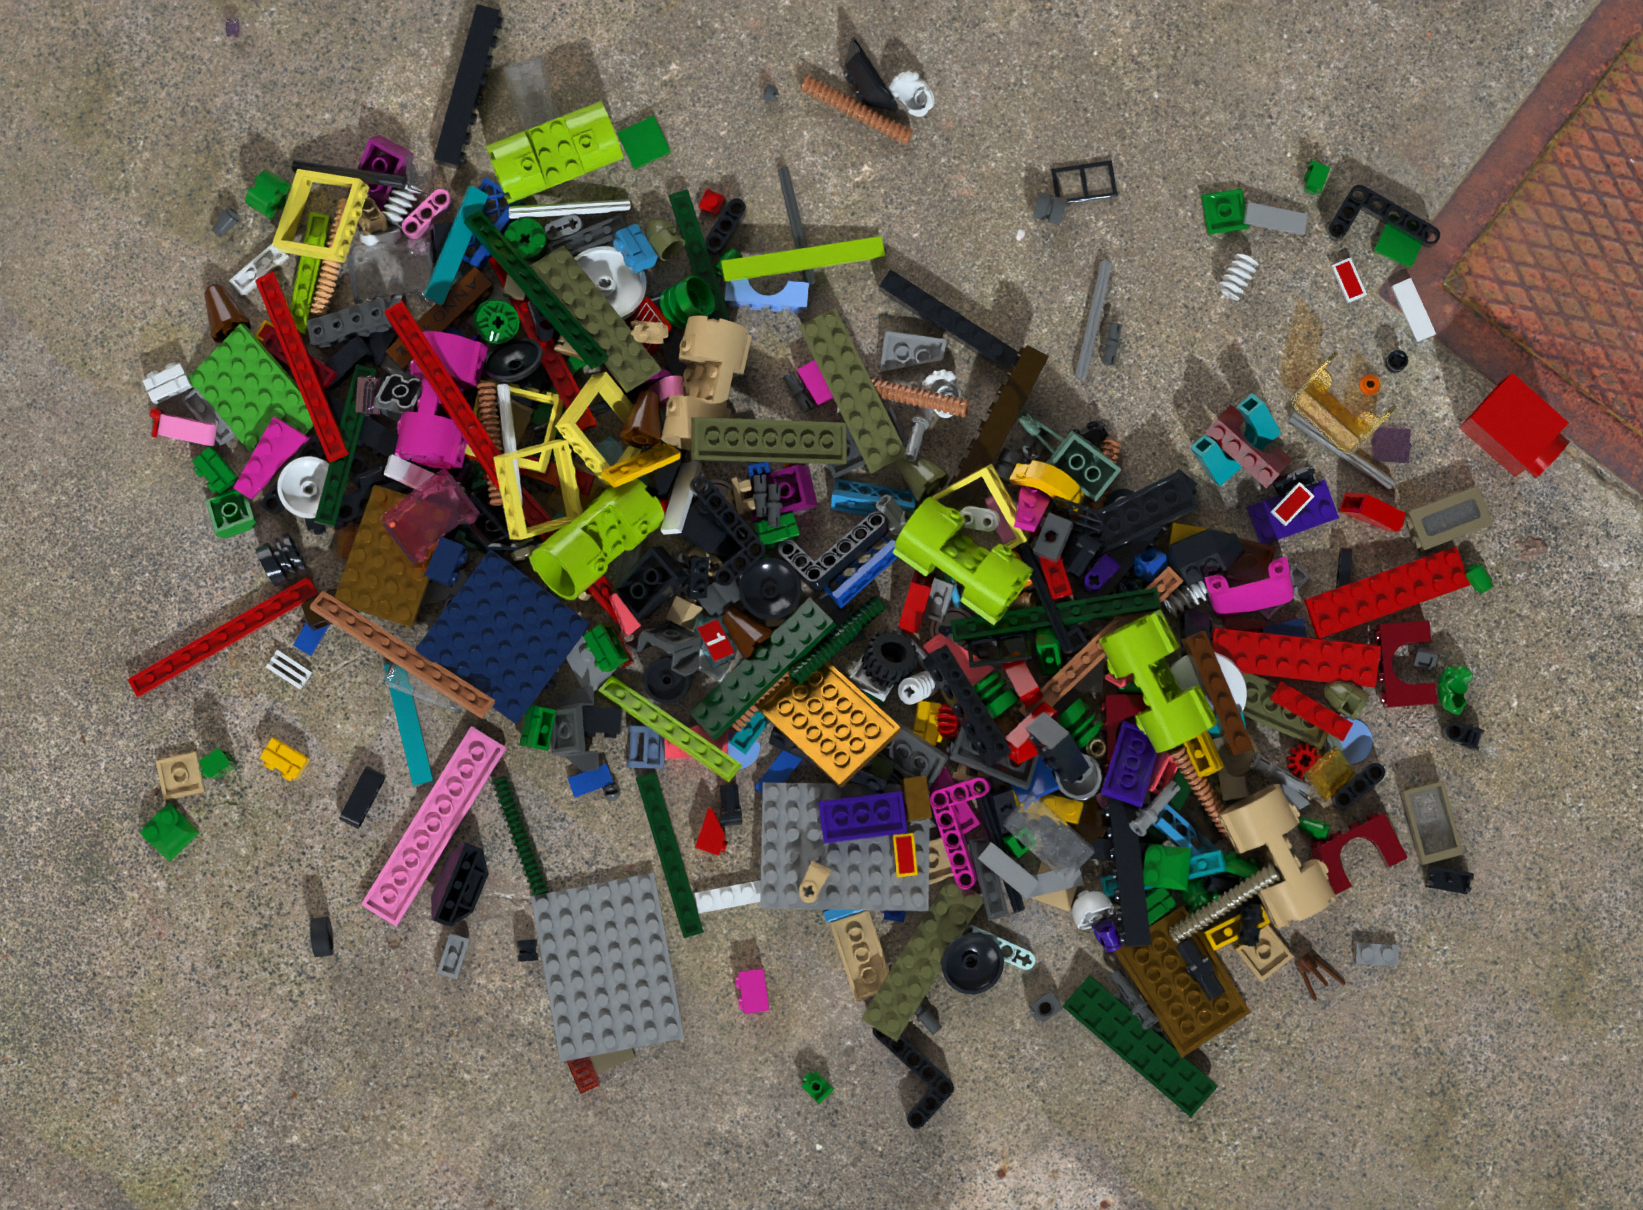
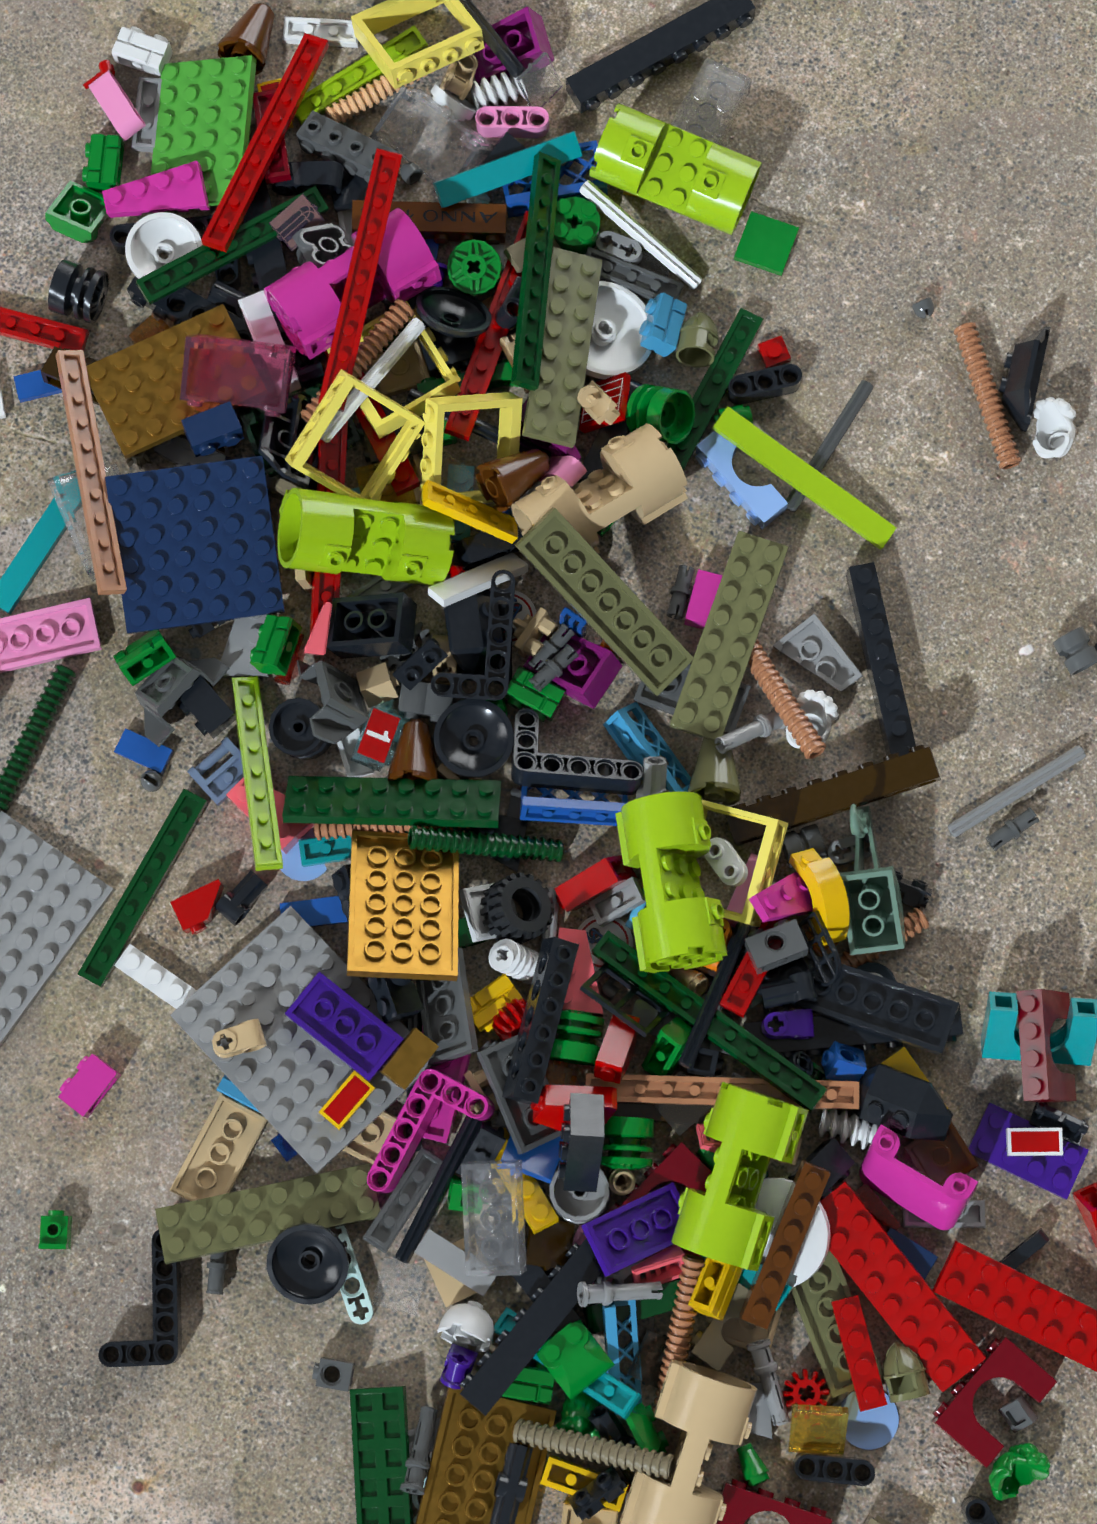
camera: 45 degrees right, 5 degrees down
(1008, 870) = (427, 1211): light grey tile -> none

